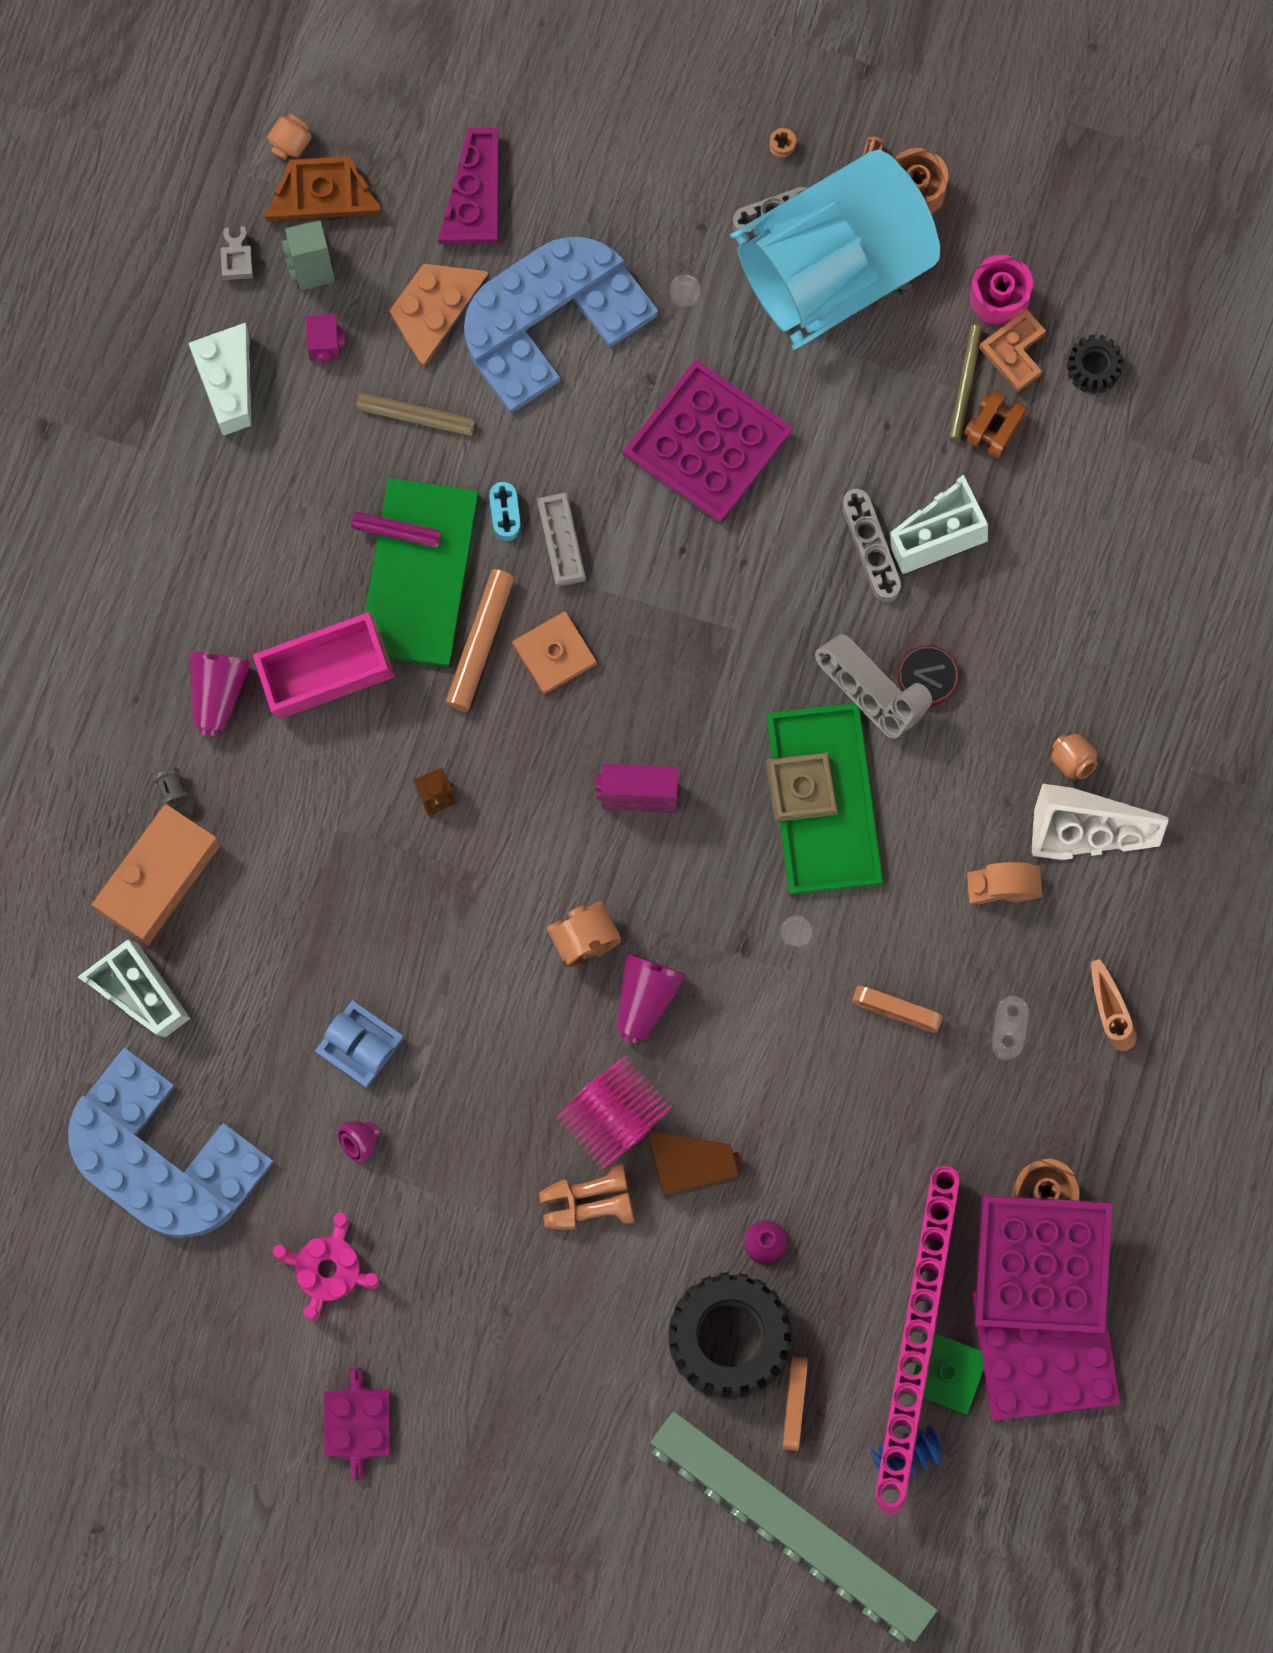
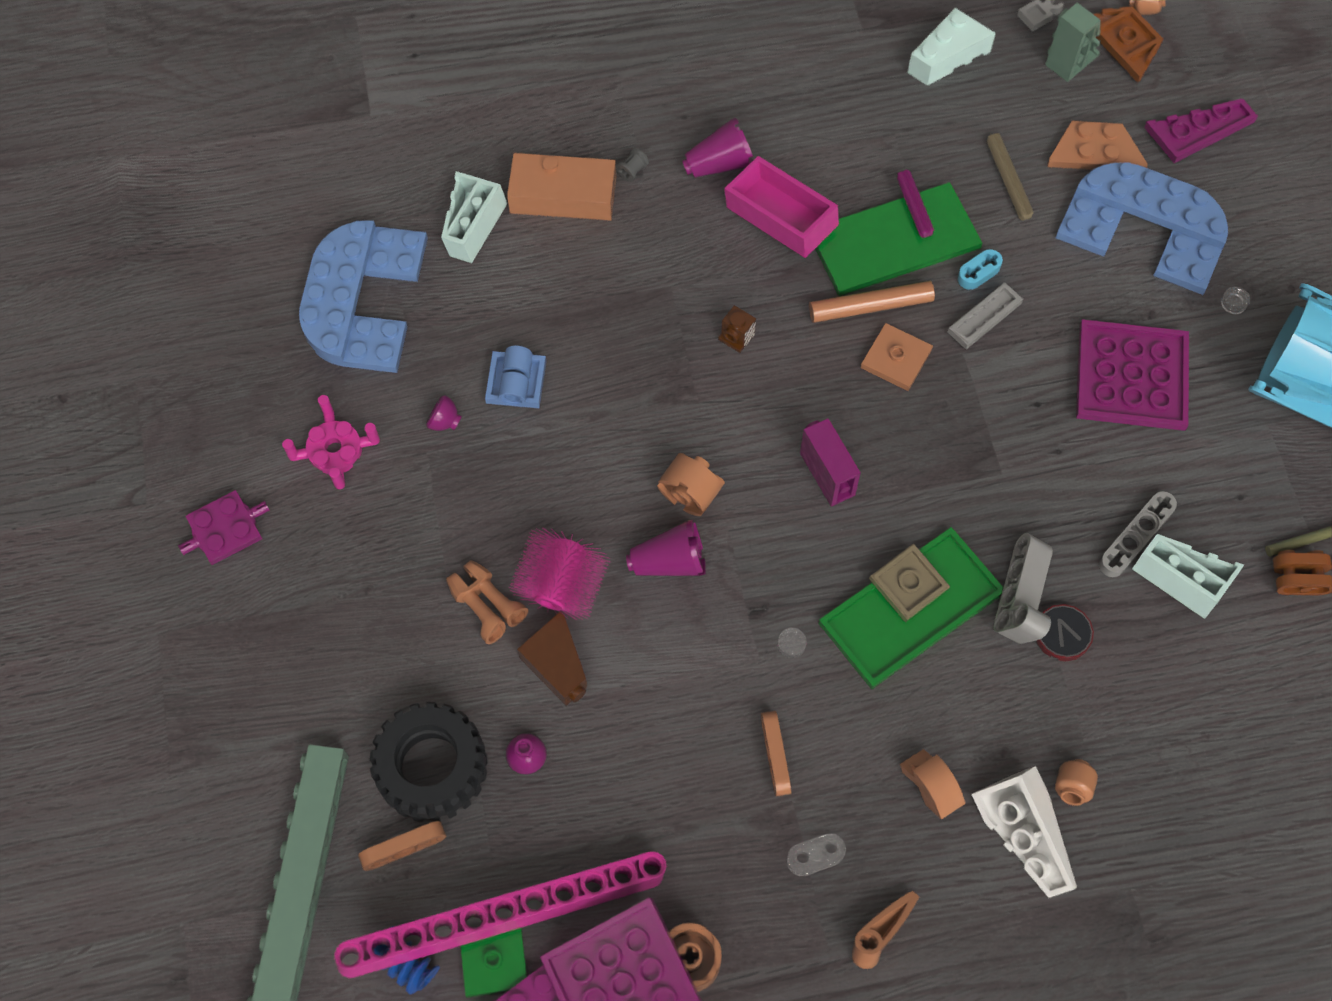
camera: 60 degrees right, 10 degrees down
(324, 338) = (1021, 90): magenta brick -> none

